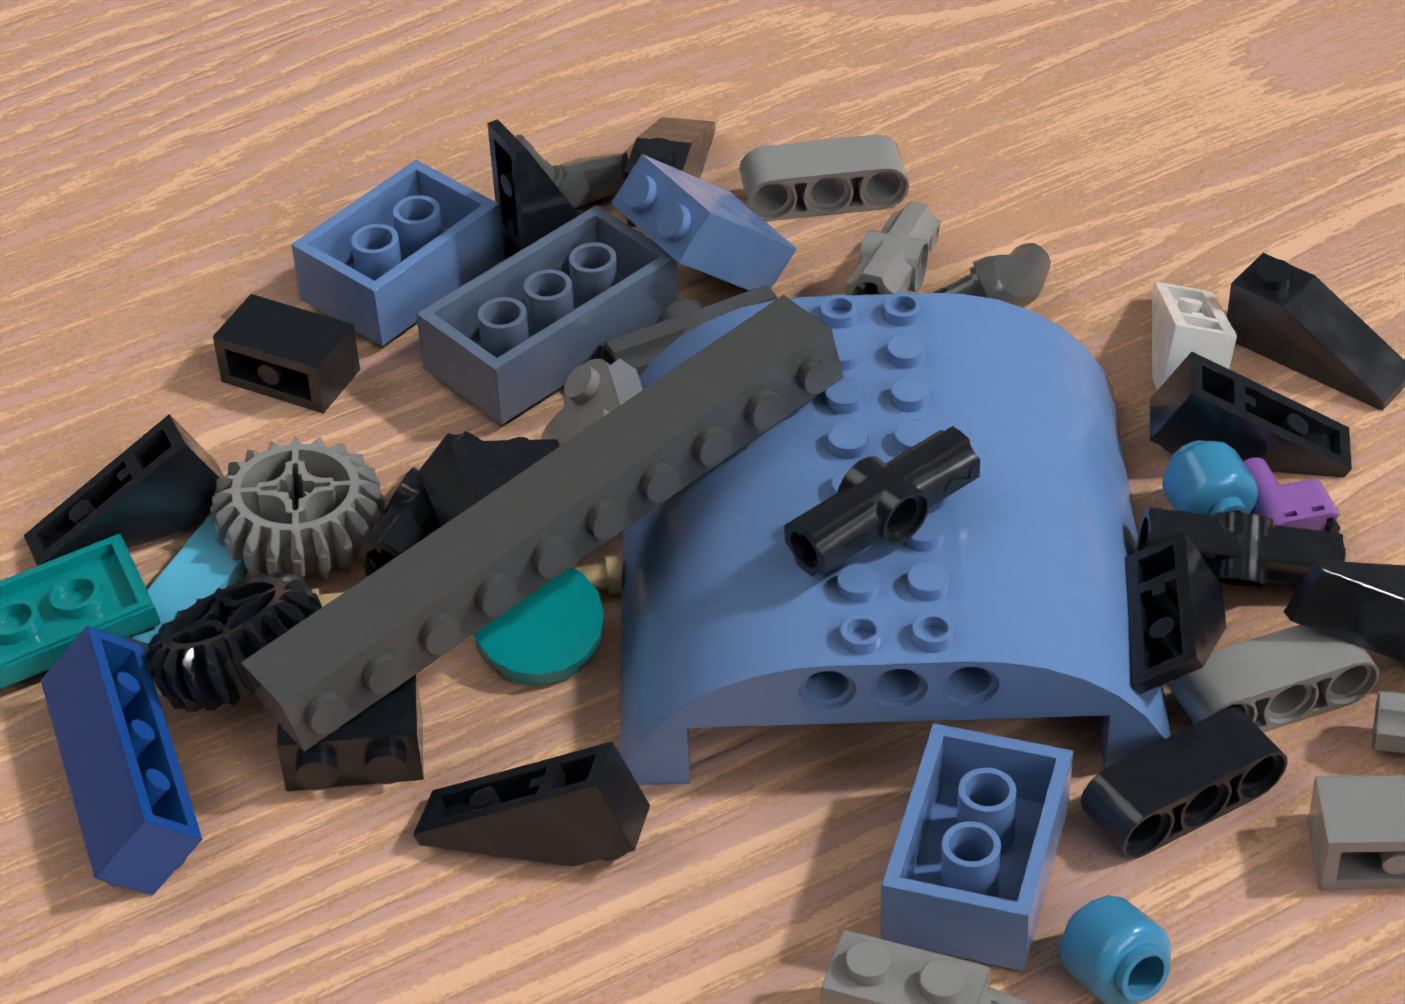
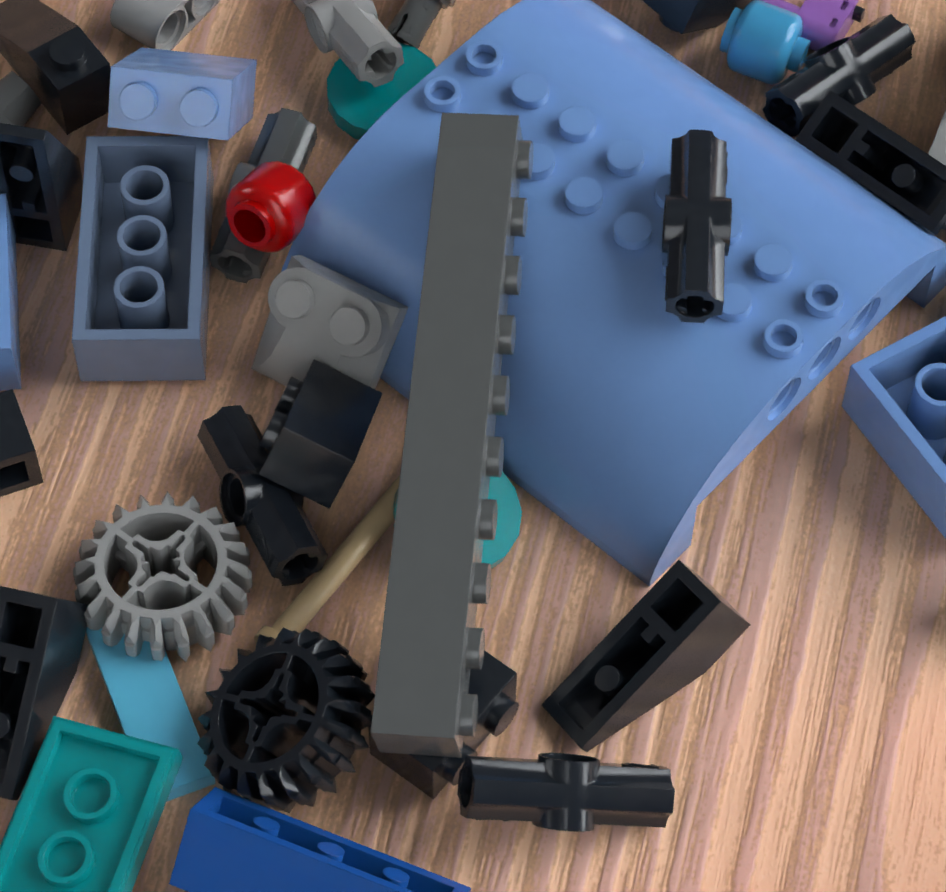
camera: 50 degrees left, 15 degrees up
(348, 838) = (565, 792): none -> black piece
(651, 321) = (269, 206): none -> red head

